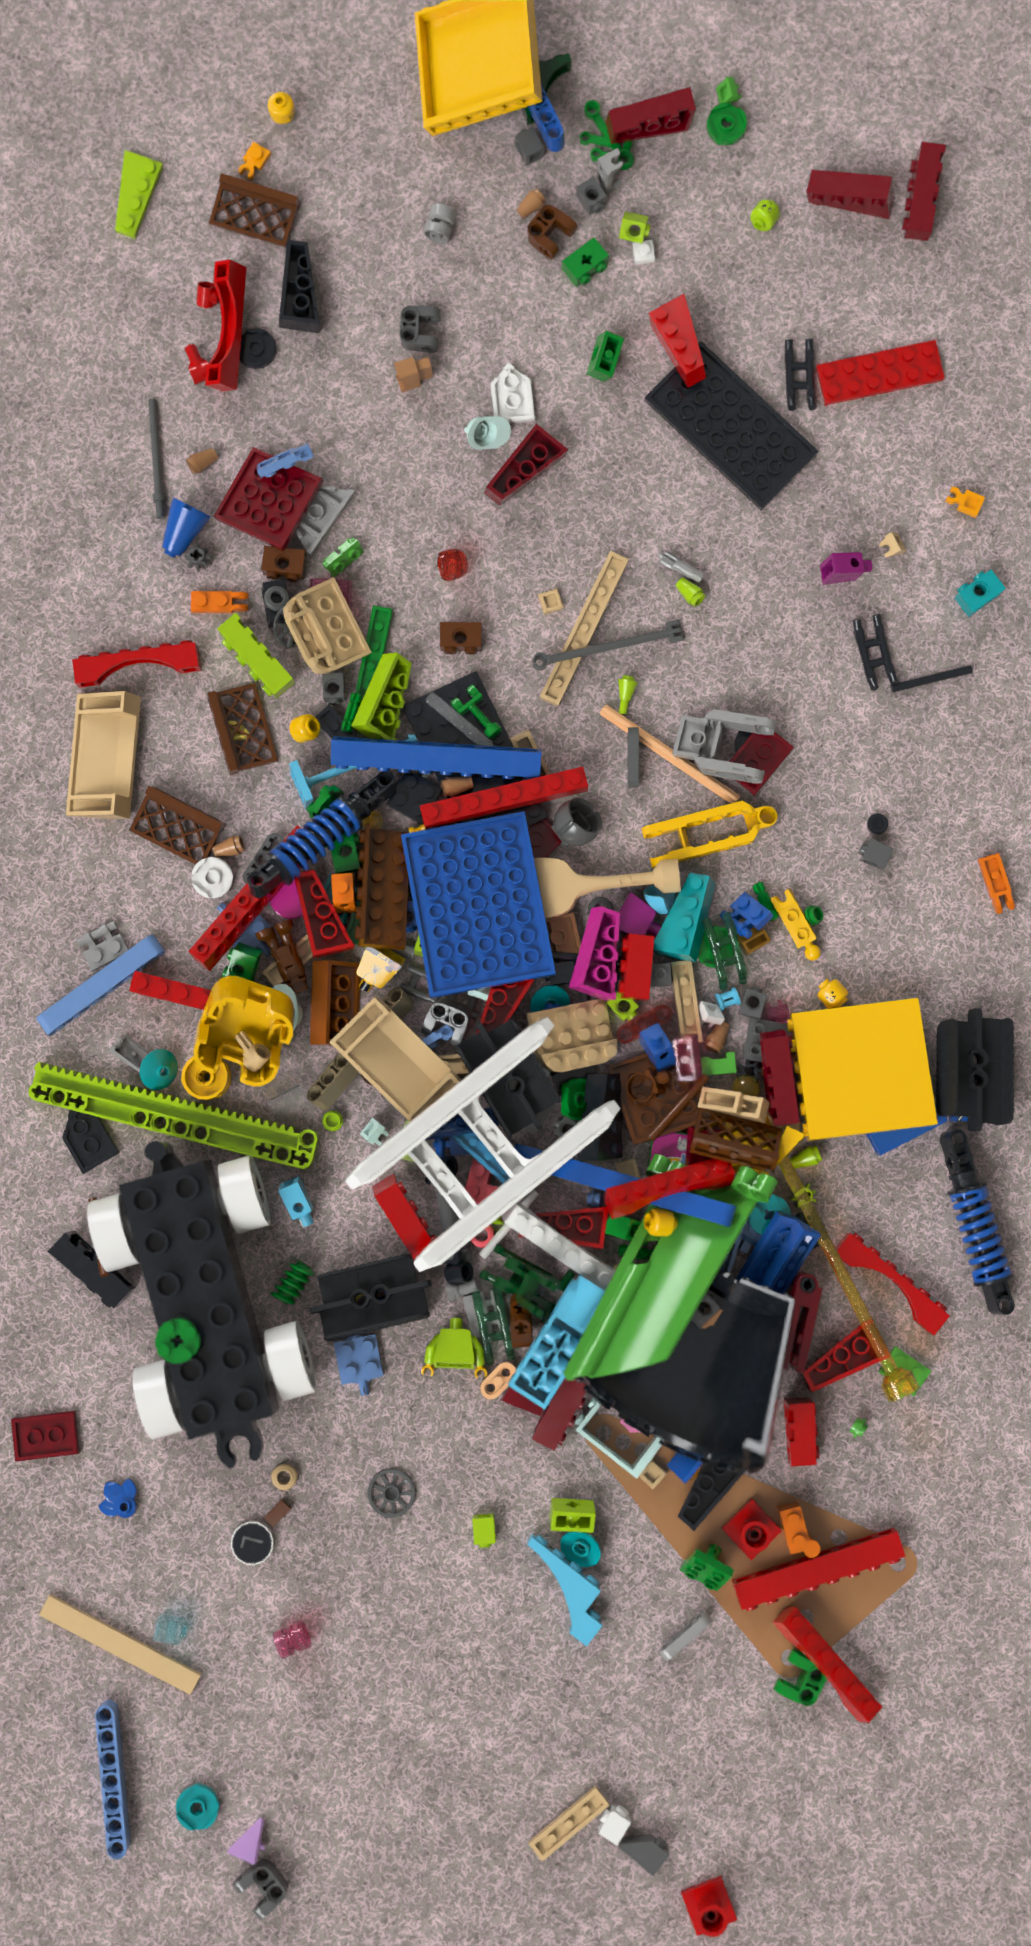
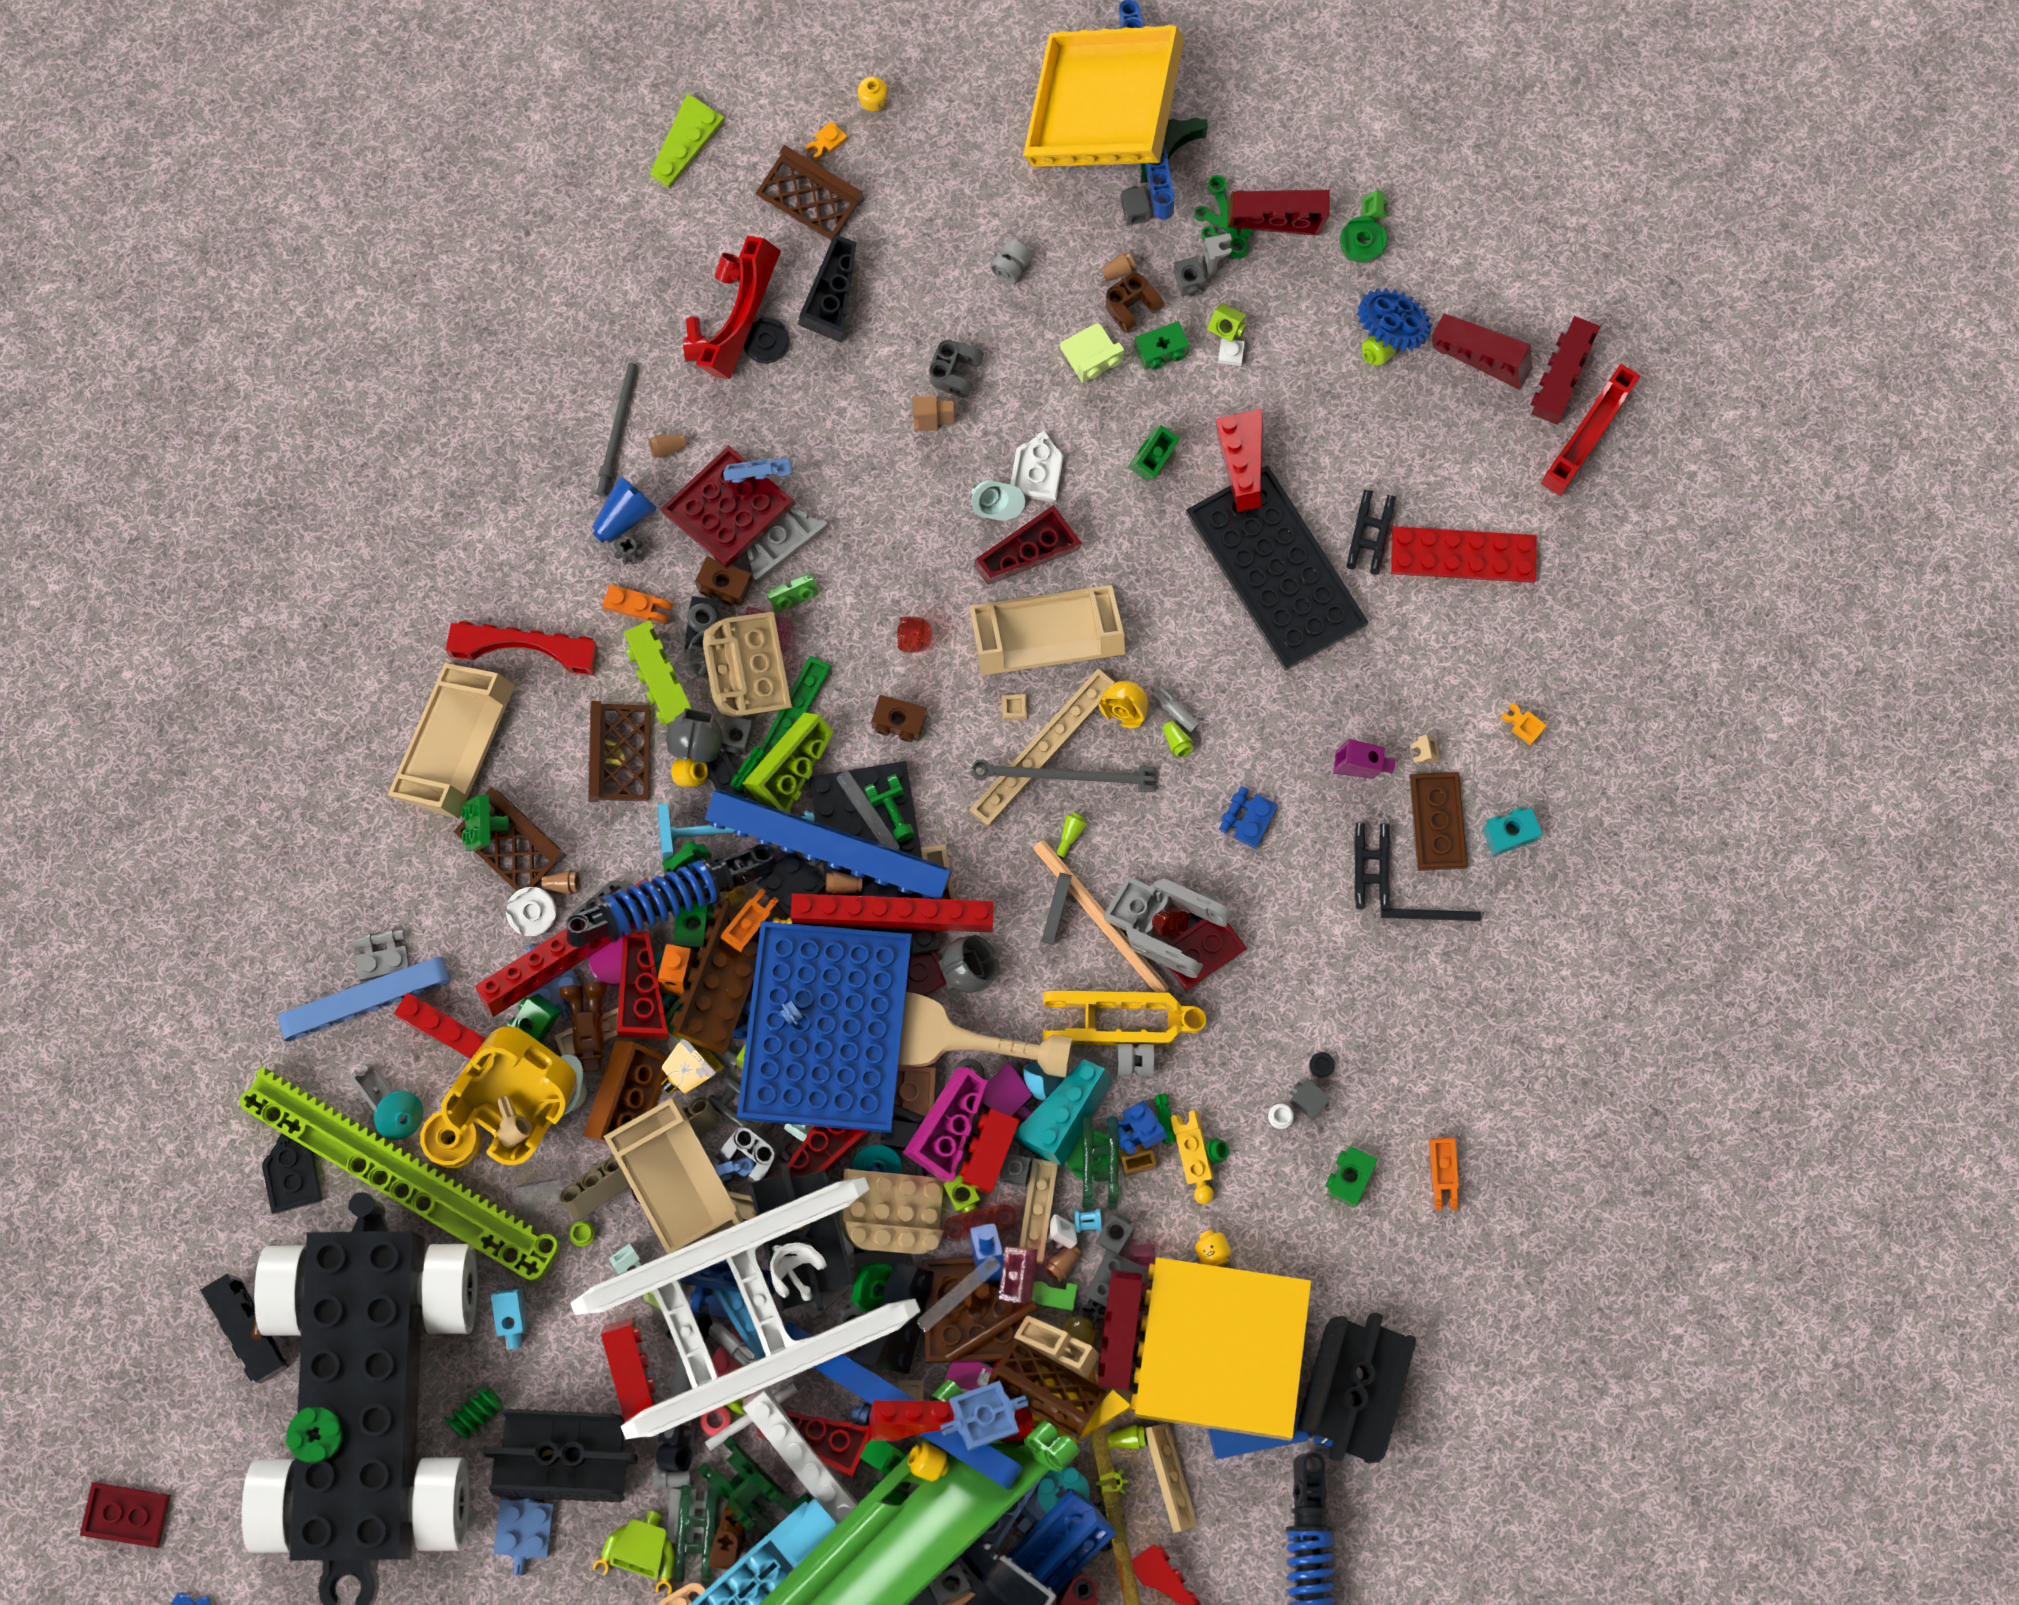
camera: 10 degrees right, 10 degrees down
(149, 818) = (480, 823): none -> green plate
(300, 698) = (694, 736): none -> dark grey piece
(390, 837) = (748, 921): none -> orange hinge
(448, 902) = (791, 1013): none -> medium blue plate
(484, 1177) = (732, 1345): none -> light grey piece
(502, 1102) = (783, 1265): none -> white helmet
(529, 284) = (1091, 352): none -> yellowish green bracket
(559, 530) = (1047, 630): none -> tan slope
(640, 573) = (1125, 702): none -> yellow cylinder
(646, 1085) = (958, 1293): none -> clear axle
(696, 1176) = (984, 1415): none -> medium blue plate
(722, 862) = (1126, 1059): none -> light grey wheel
(727, 743) = (1170, 922): none -> clear red plate
(771, 186) = (1394, 319): none -> blue gear
(771, 640) = (1255, 820): none -> blue plate
(847, 1179) = (1170, 1477): none -> tan plate
(856, 874) = (1280, 1116): none -> white plate
(917, 600) = (1438, 821): none -> reddish brown tile
(932, 896) = (1361, 1165): none -> green brick
(957, 237) = (1590, 429): none -> red arch

